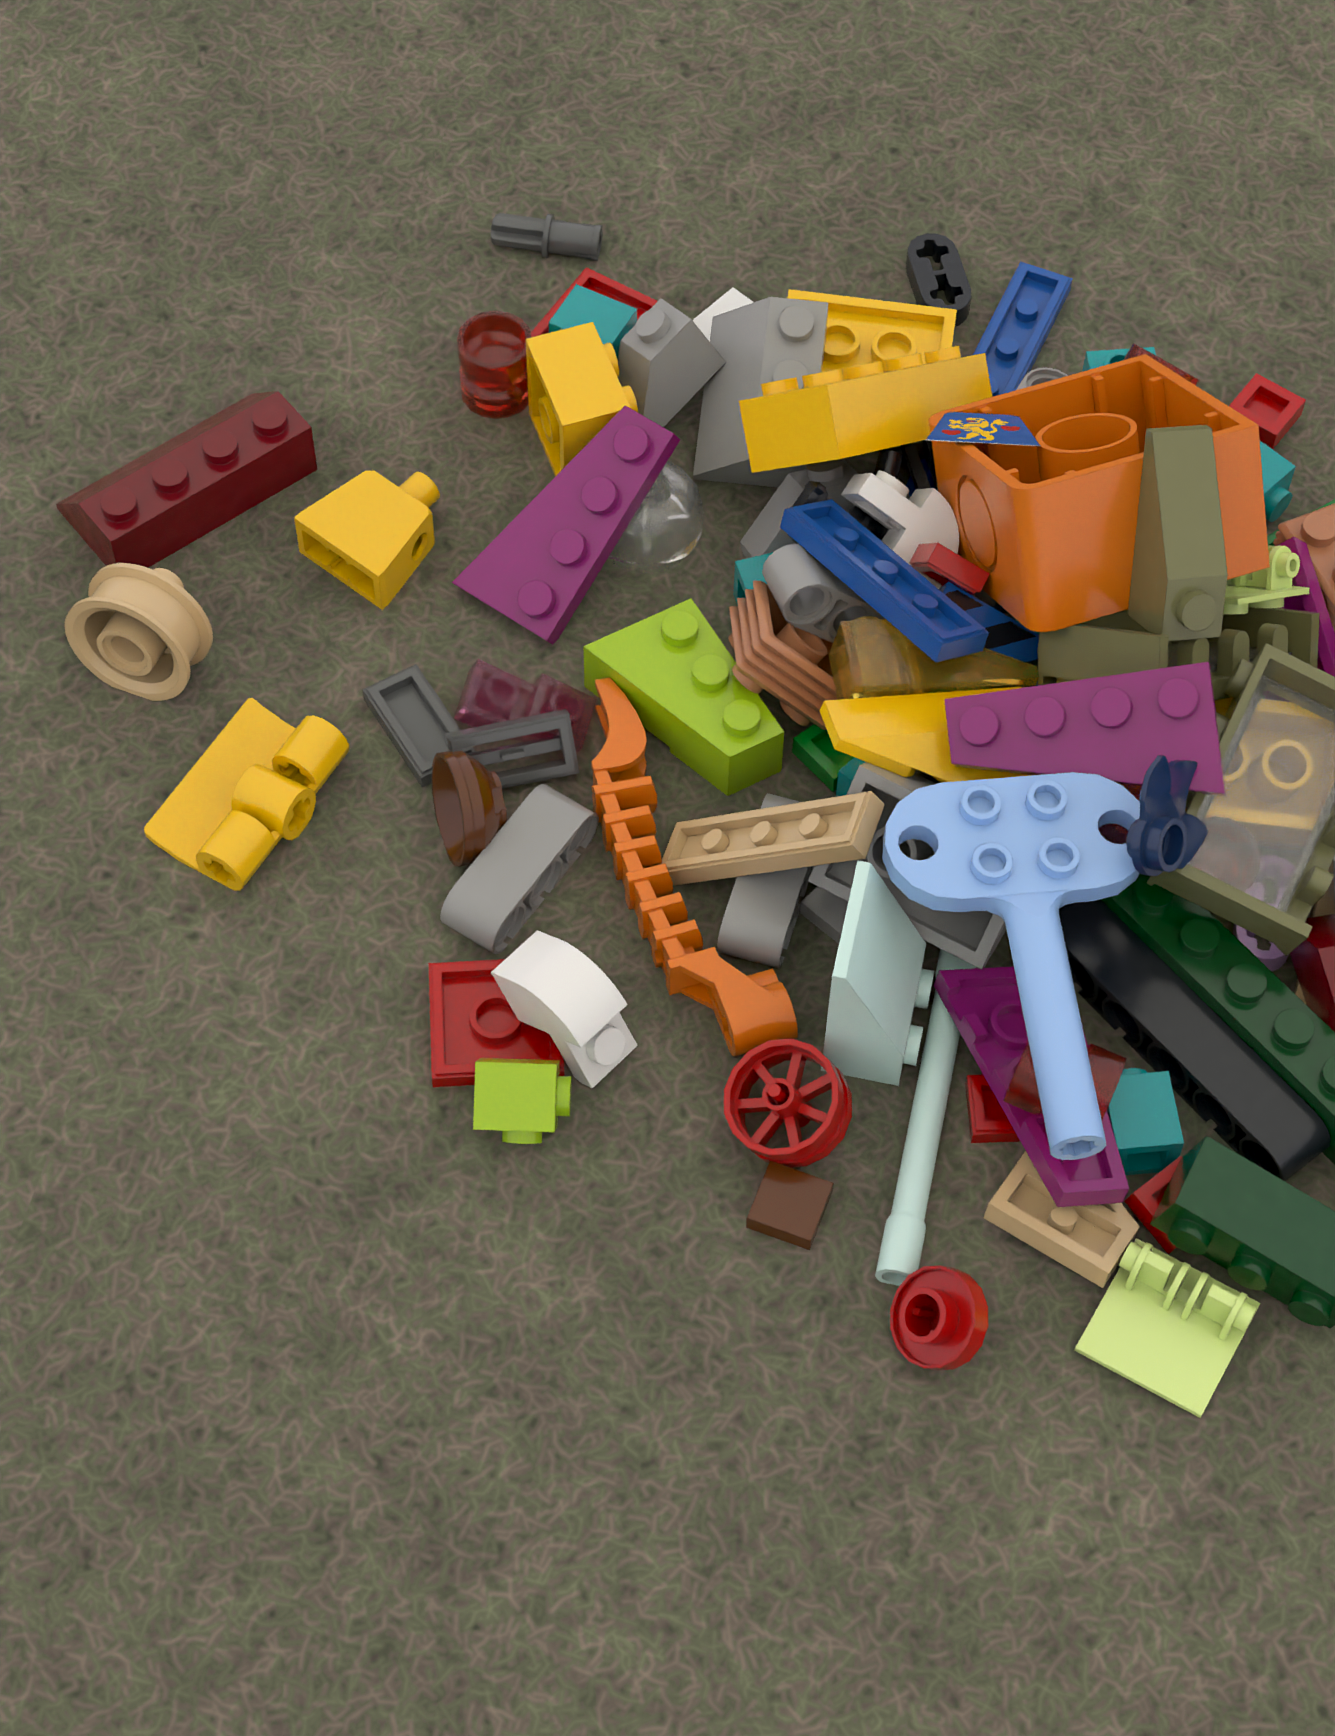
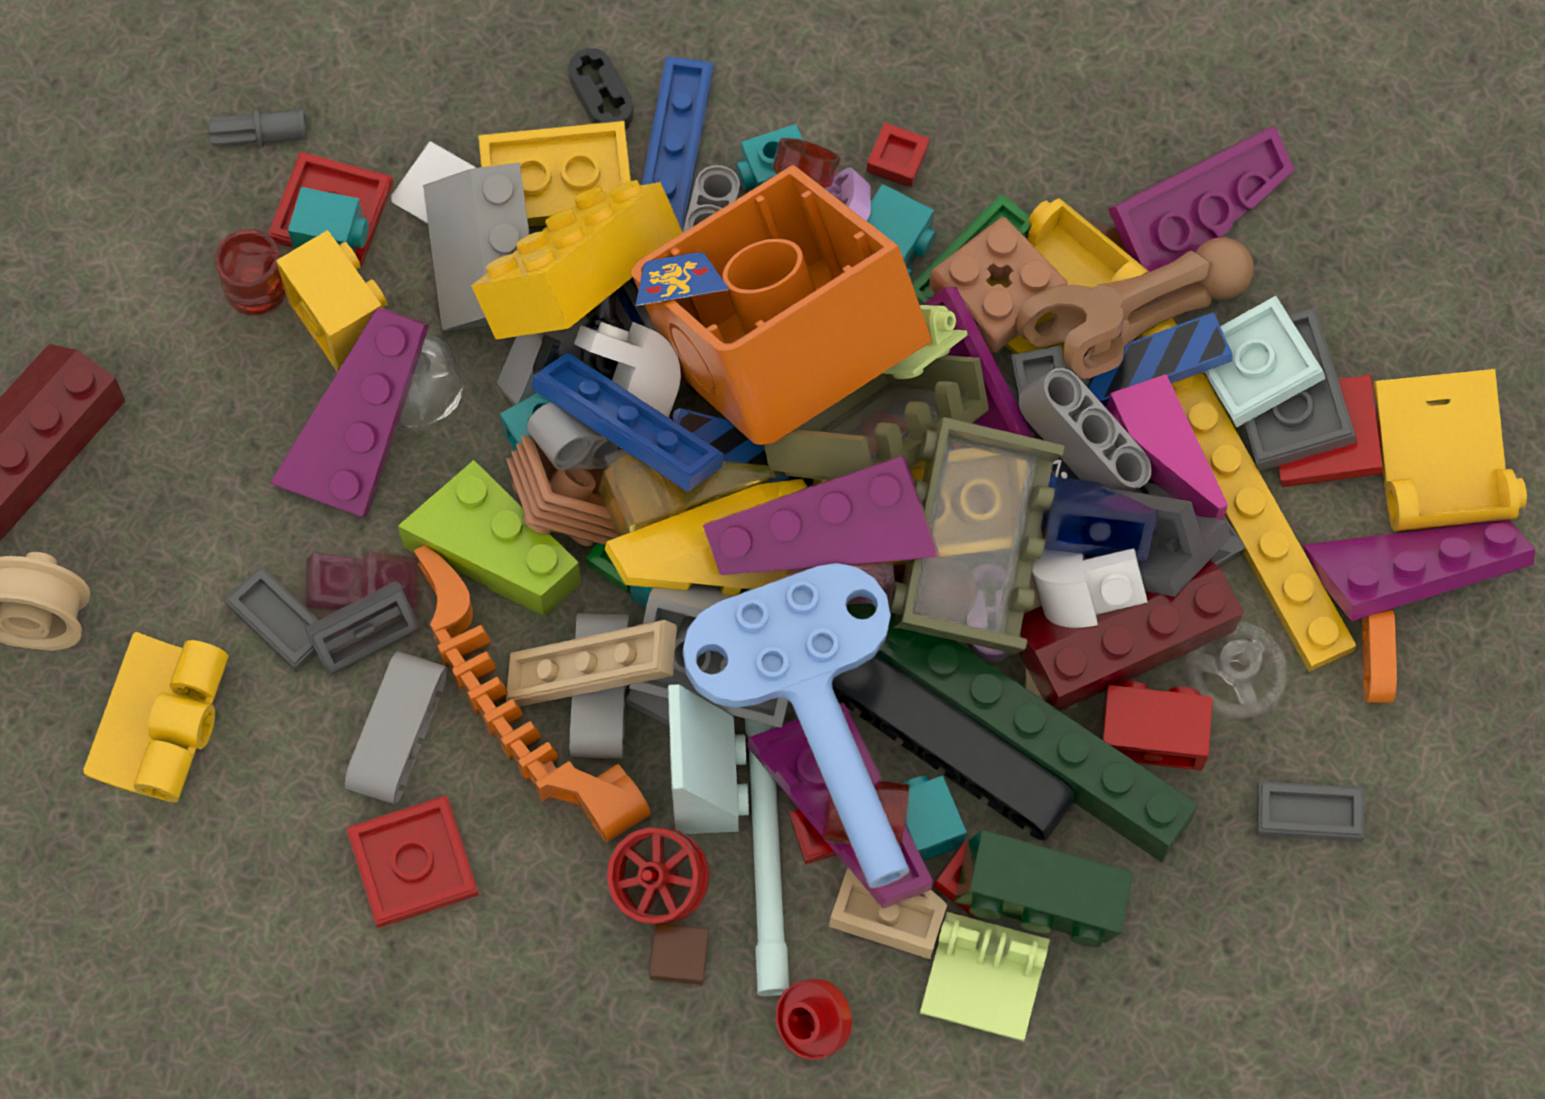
camera: 15 degrees left, 10 degrees up
(371, 532) = (191, 455): yellow torso -> none
(466, 805) = (340, 688): reddish brown piece -> none
(520, 1098) = (450, 925): lime brick -> none
(571, 1000) = (467, 839): white brick -> none
(665, 361) = (393, 246): light grey slope -> none
(945, 565) = (677, 395): red tile -> none
(1165, 834) = (898, 597): dark blue plate -> none
(1179, 537) = (856, 352): olive slope -> none

